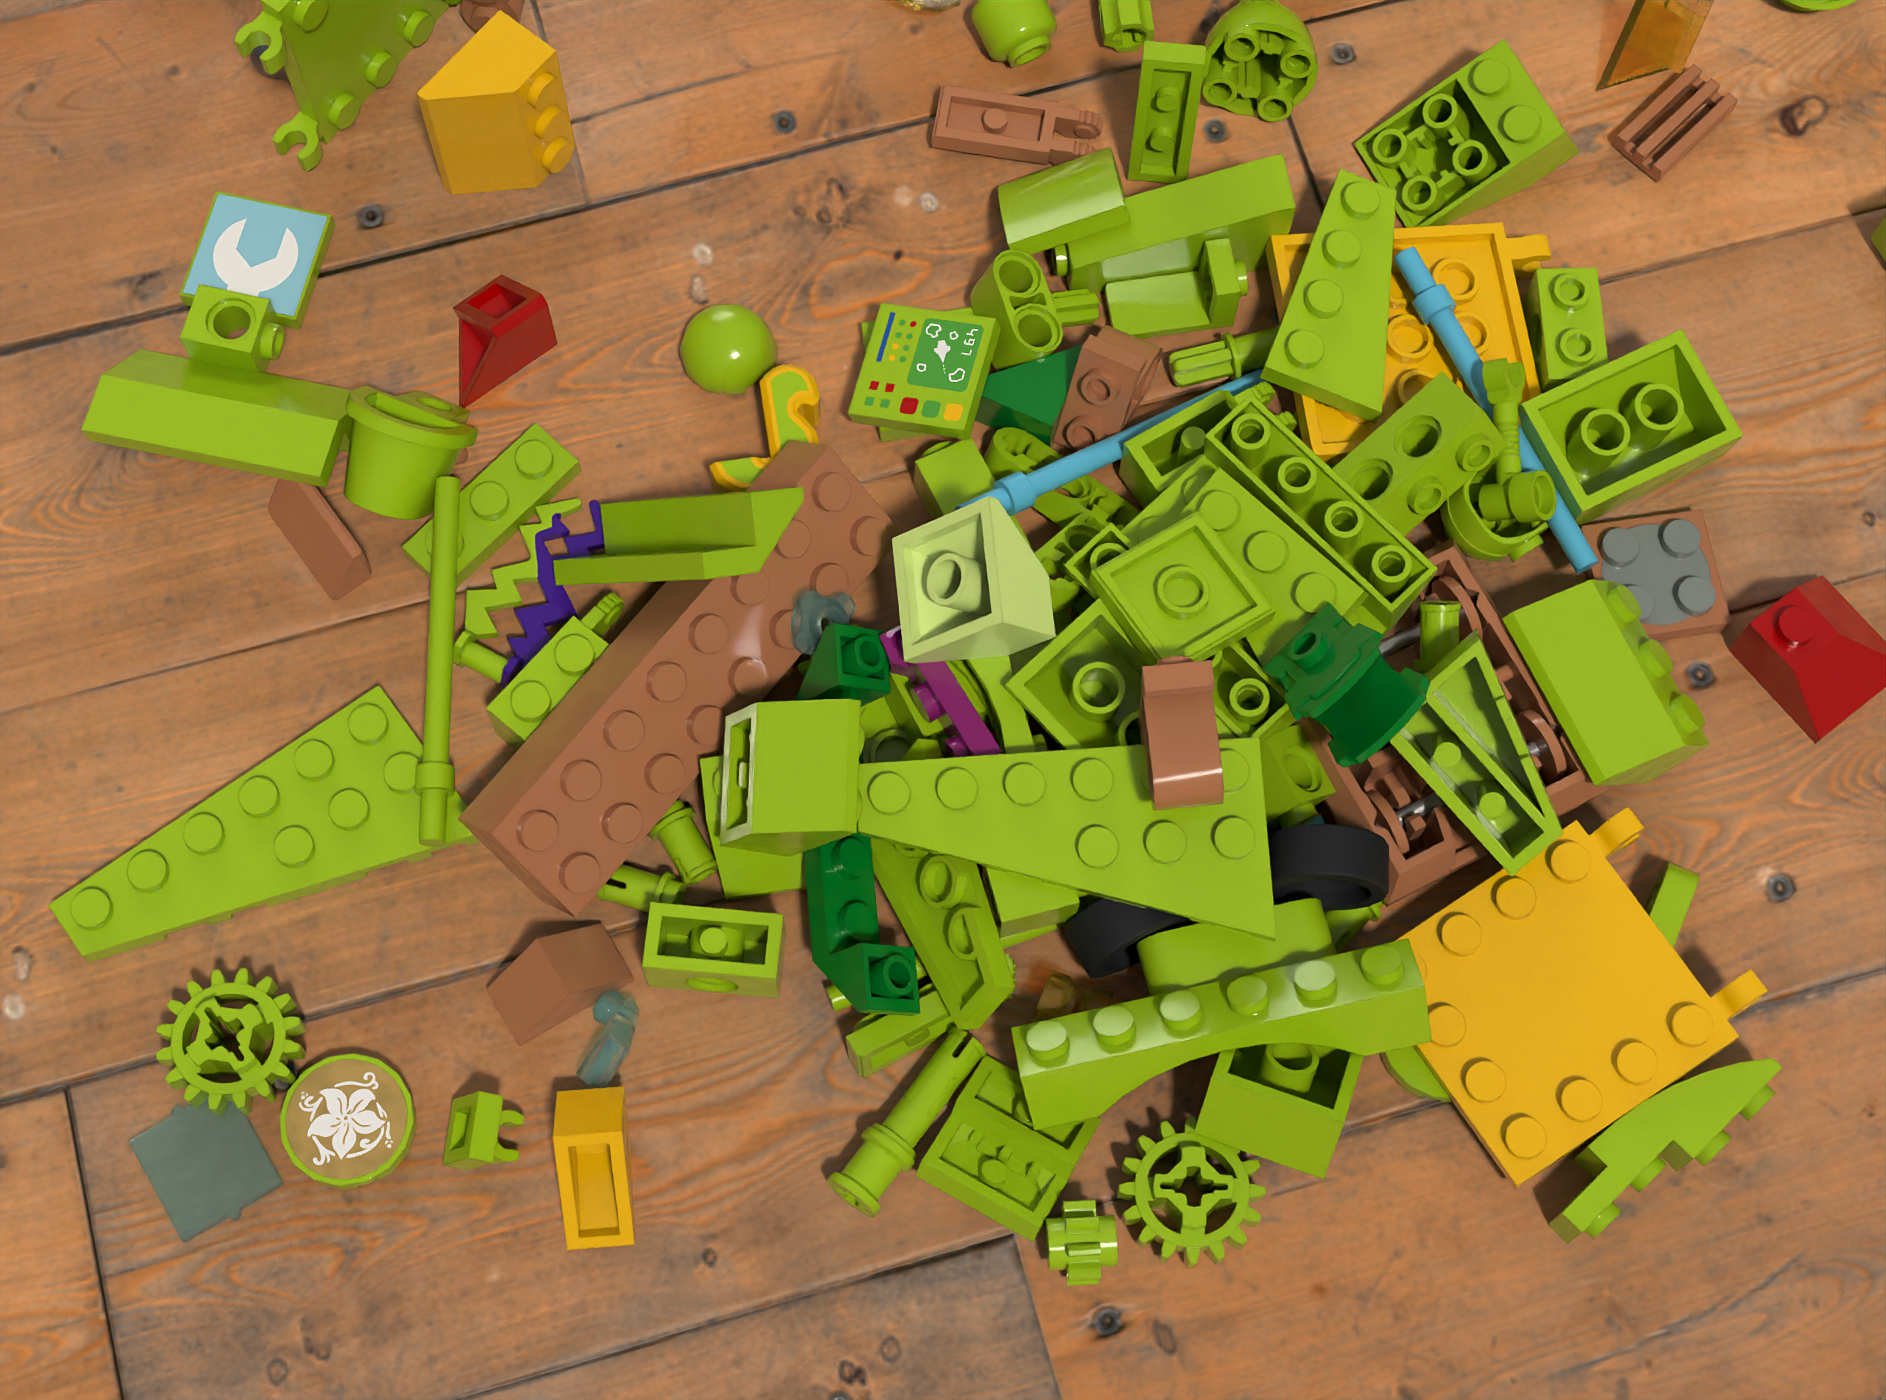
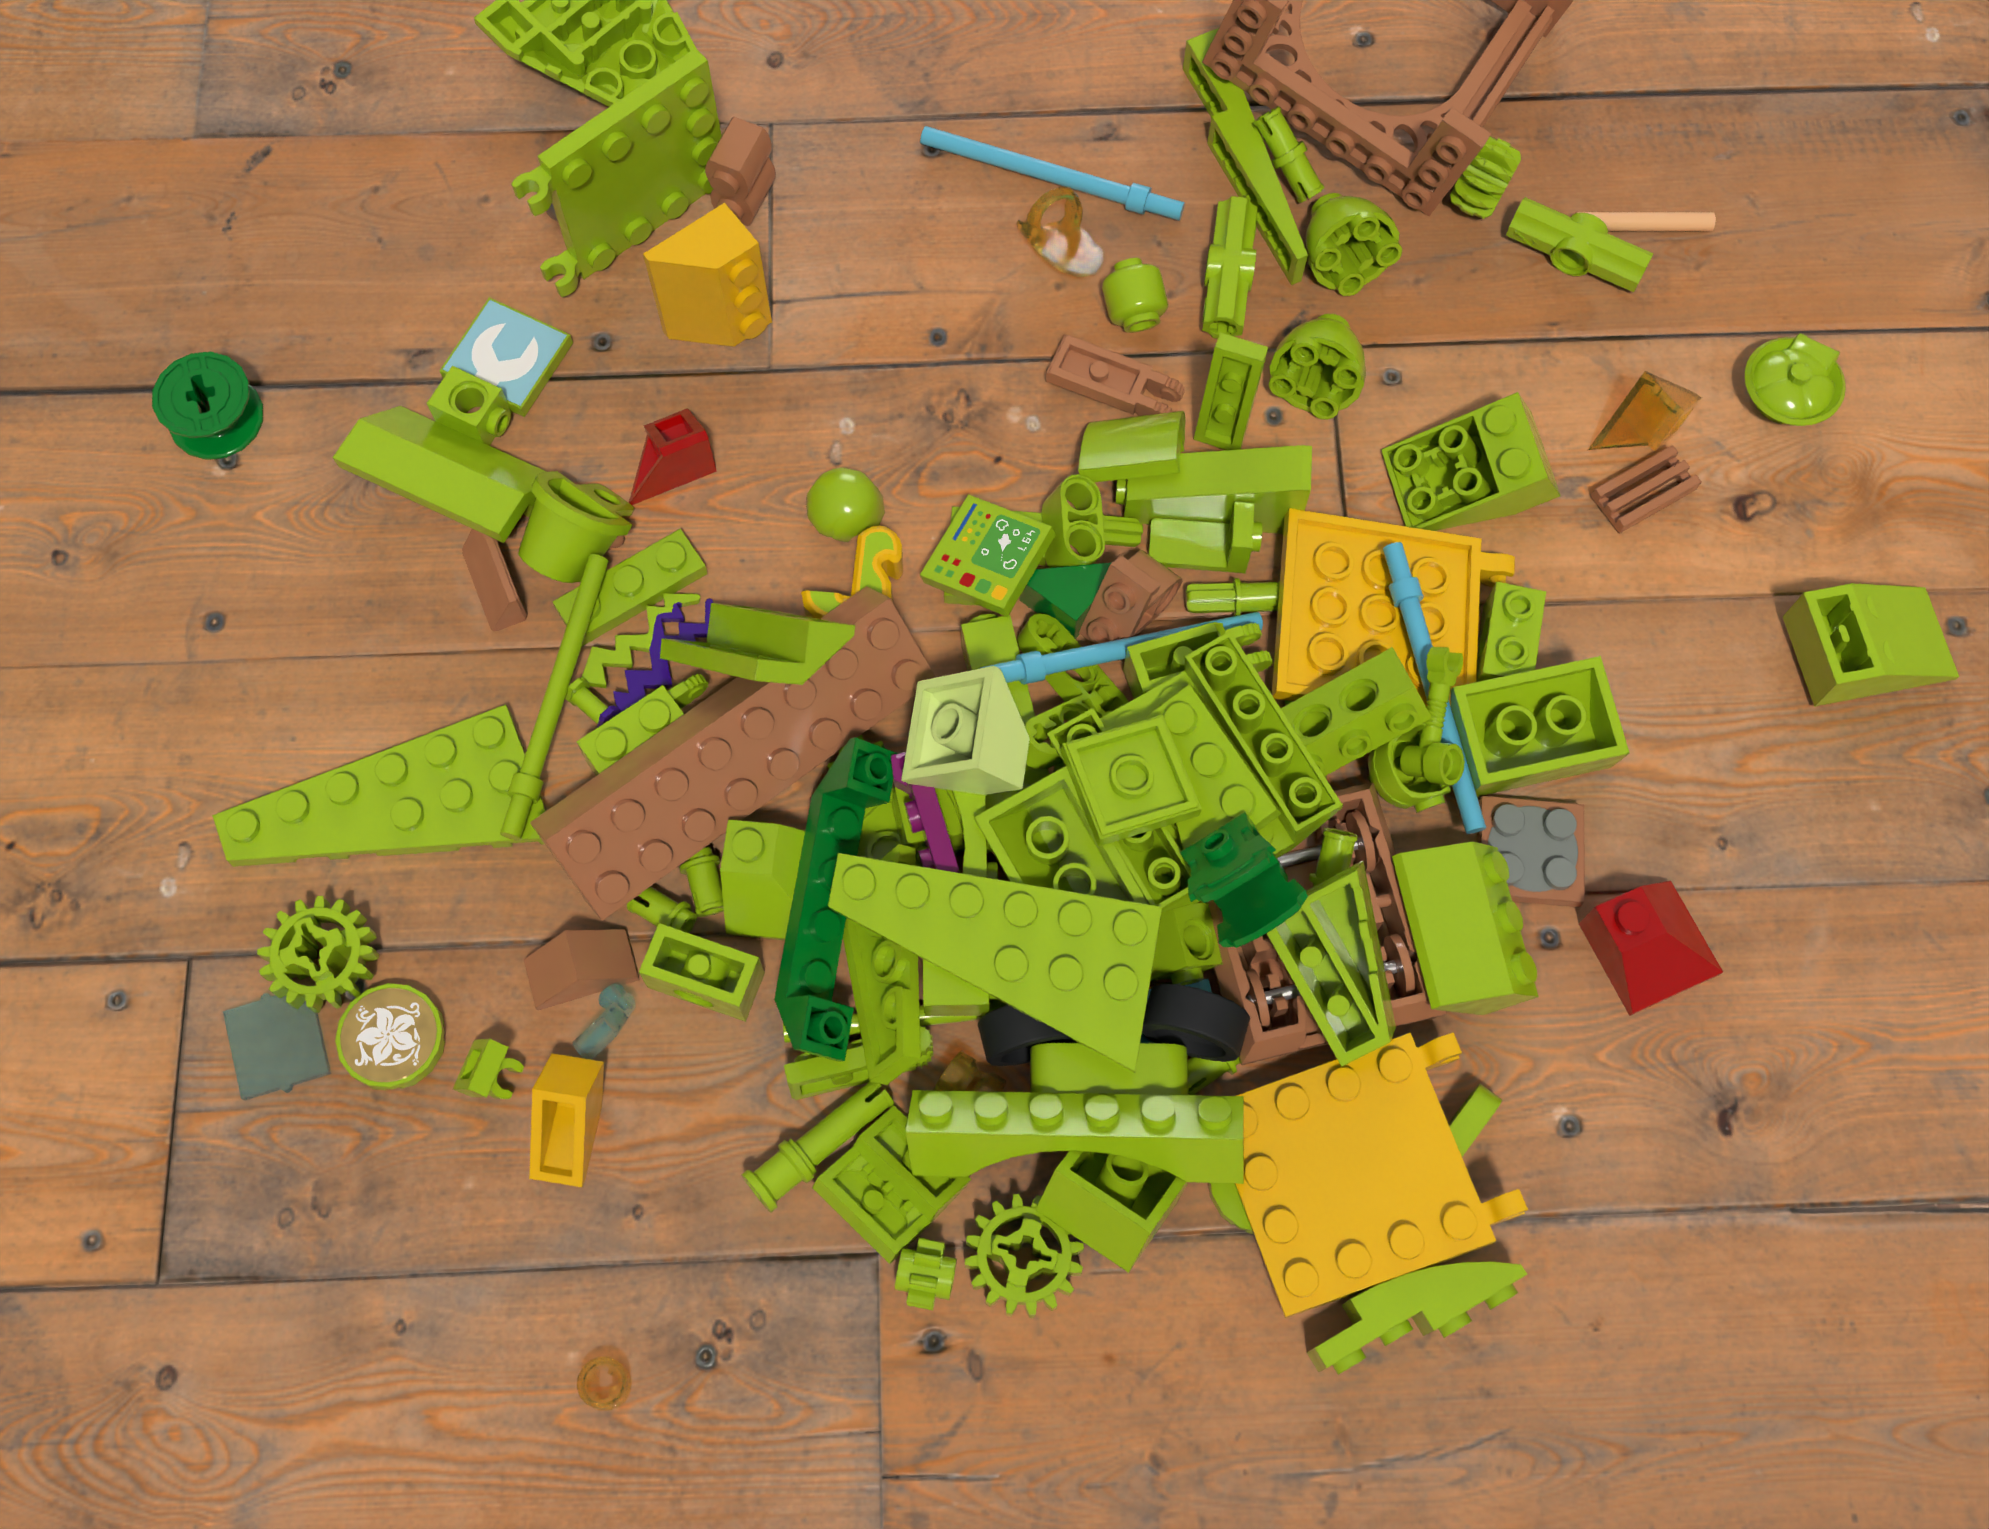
camera: 15 degrees right, 0 degrees up
(791, 775) = (788, 850): lime slope -> none
(809, 613) = (842, 724): clear light blue plate -> none
(1180, 734) = (1094, 890): nougat pin -> none
(1339, 307) = (1326, 580): lime wing -> none

